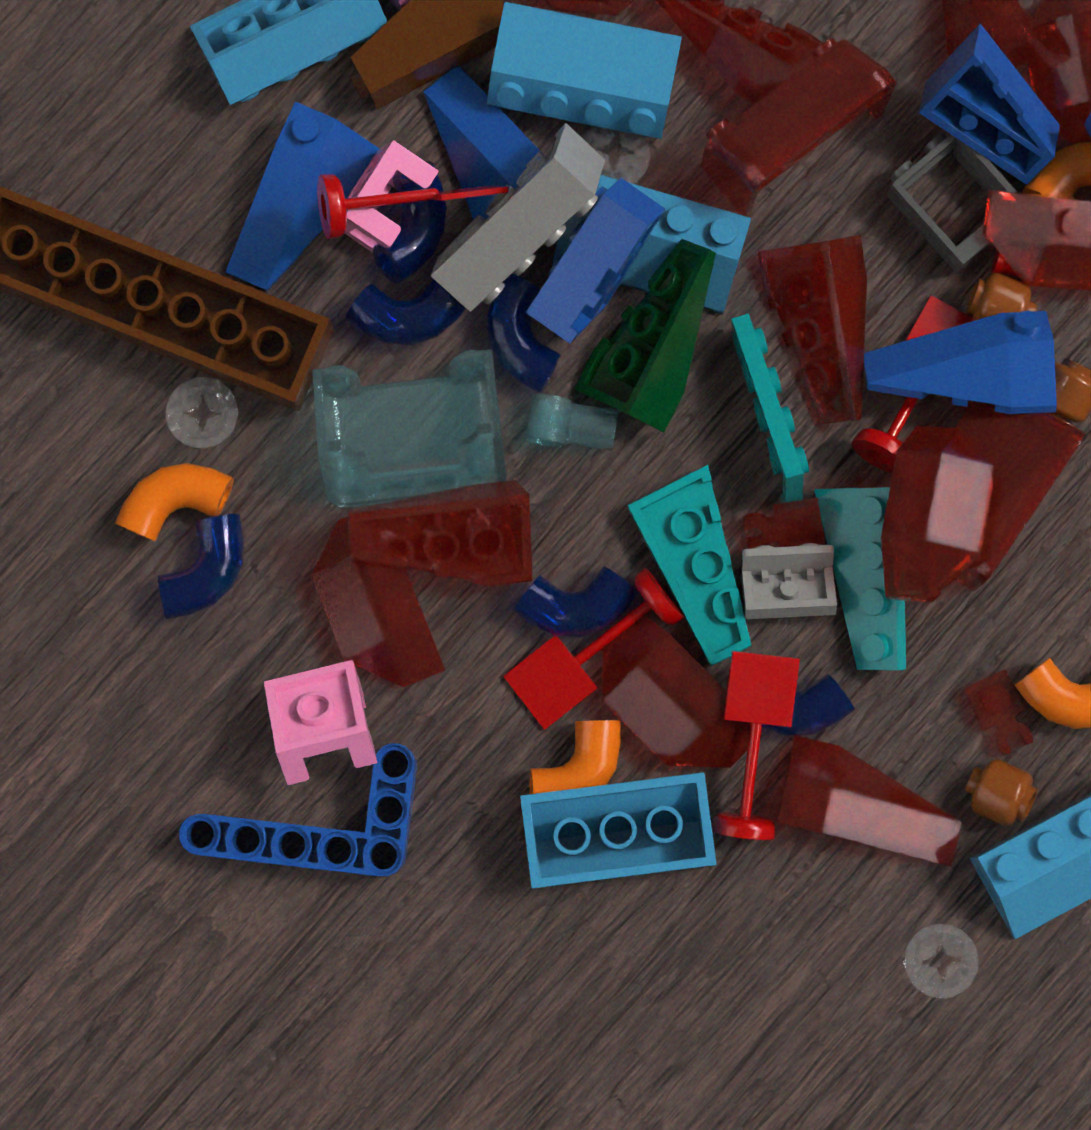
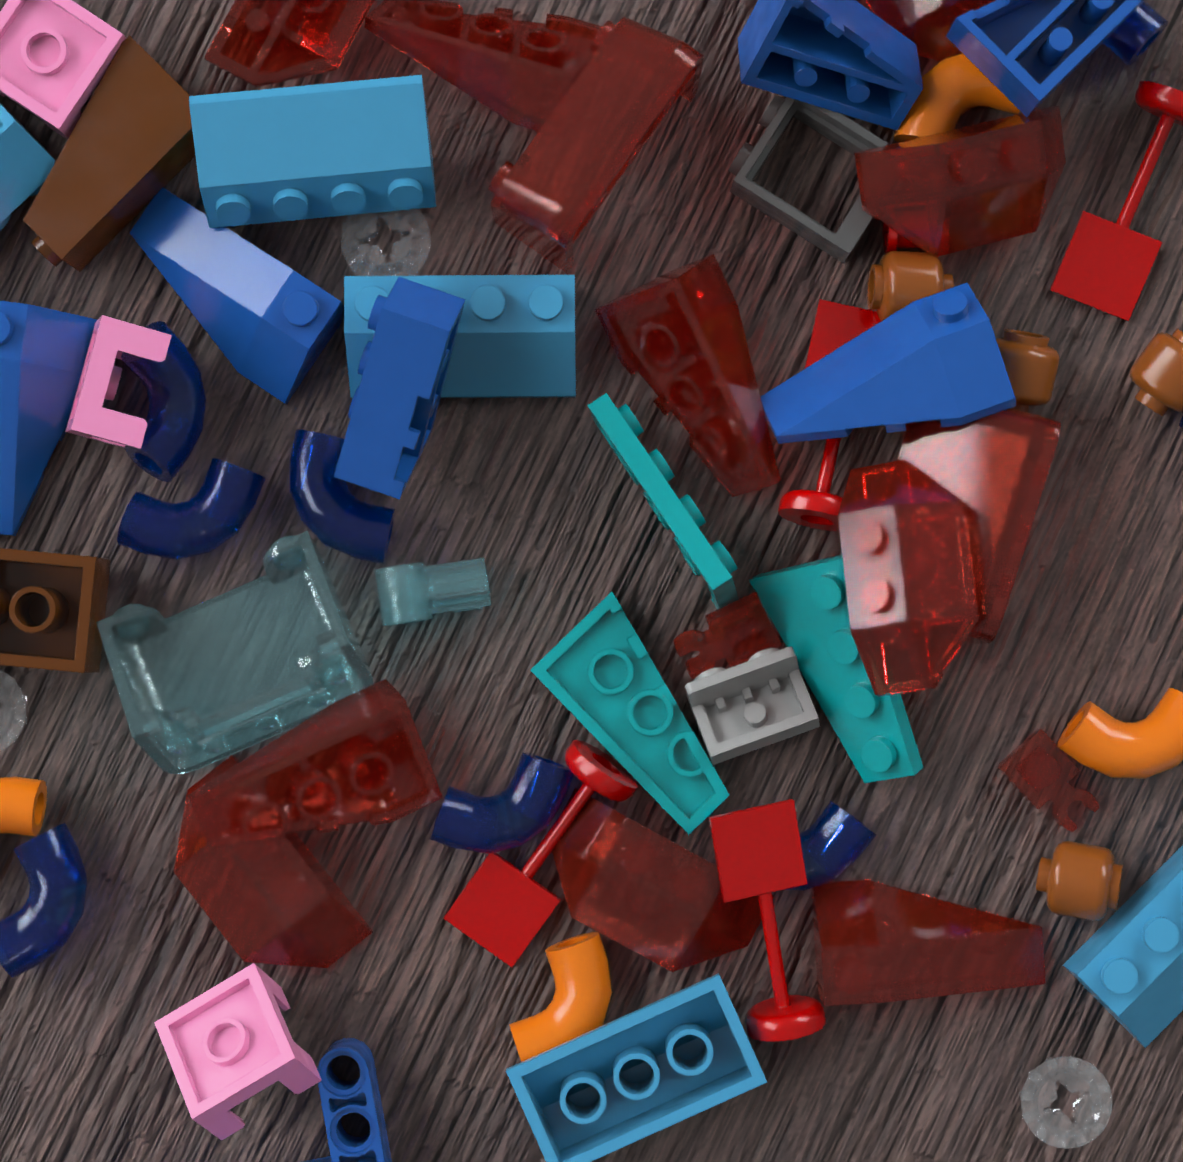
camera: 20 degrees left, 5 degrees up
(334, 205) = (53, 421): red piece -> none
(521, 221) = (293, 365): light grey wedge -> none
(651, 353) = (501, 482): dark green wedge -> none

